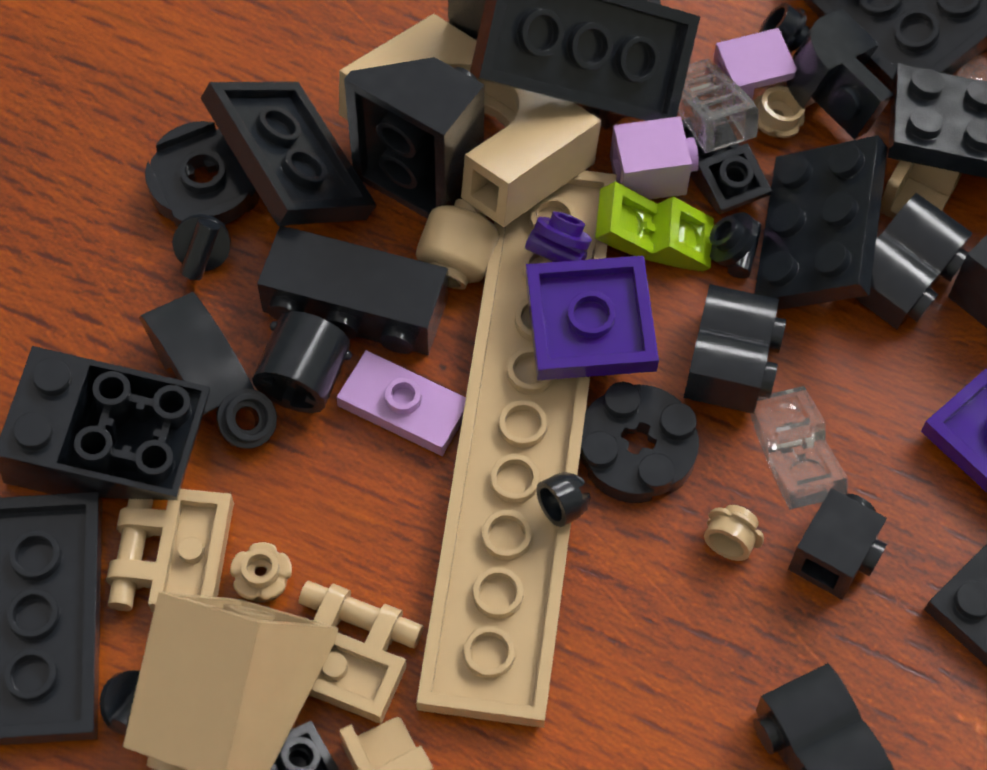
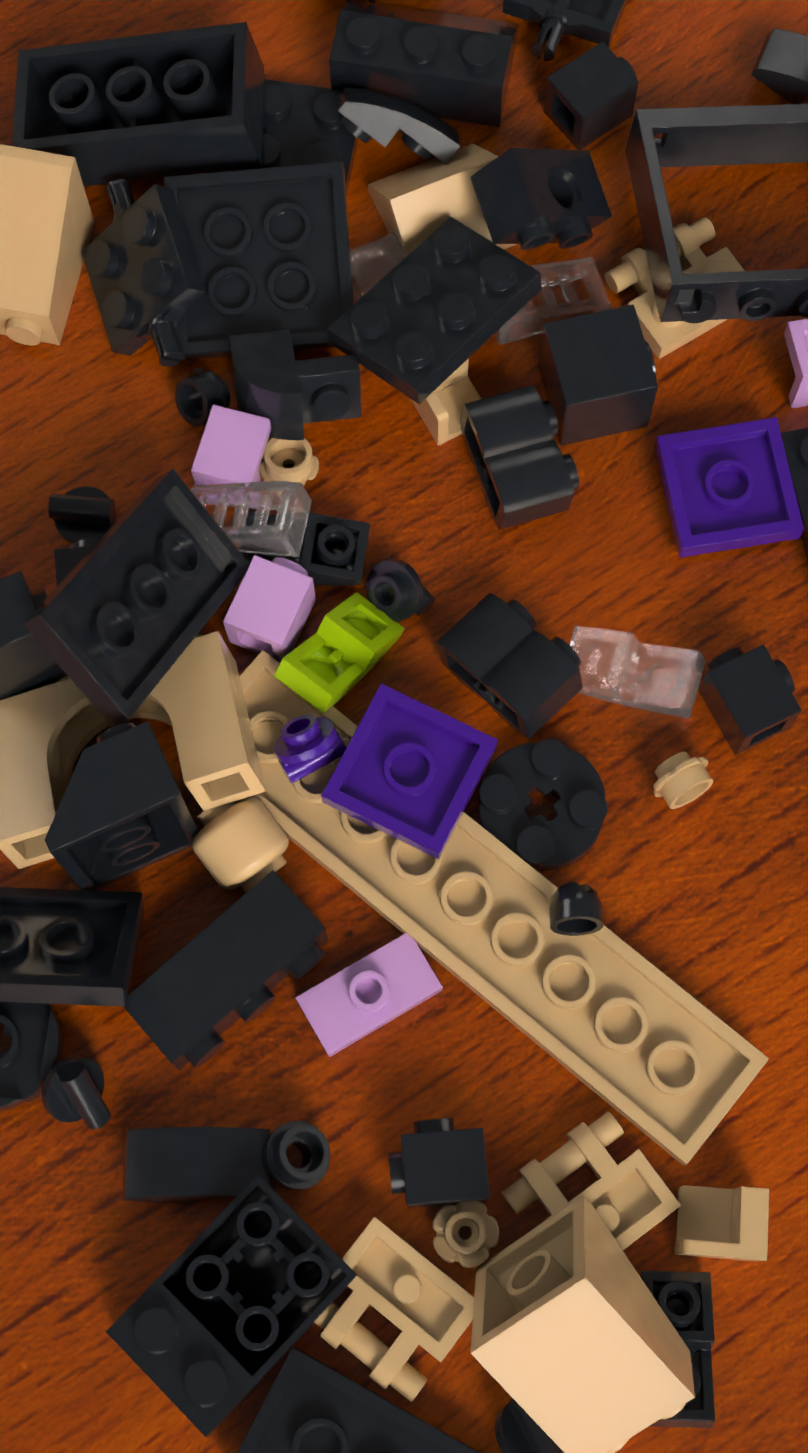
camera: 55 degrees left, 10 degrees up
(301, 361) = (275, 1067): black piece -> none
(301, 521) = (440, 1165): none -> black brick
(822, 223) = (438, 504): black plate -> none

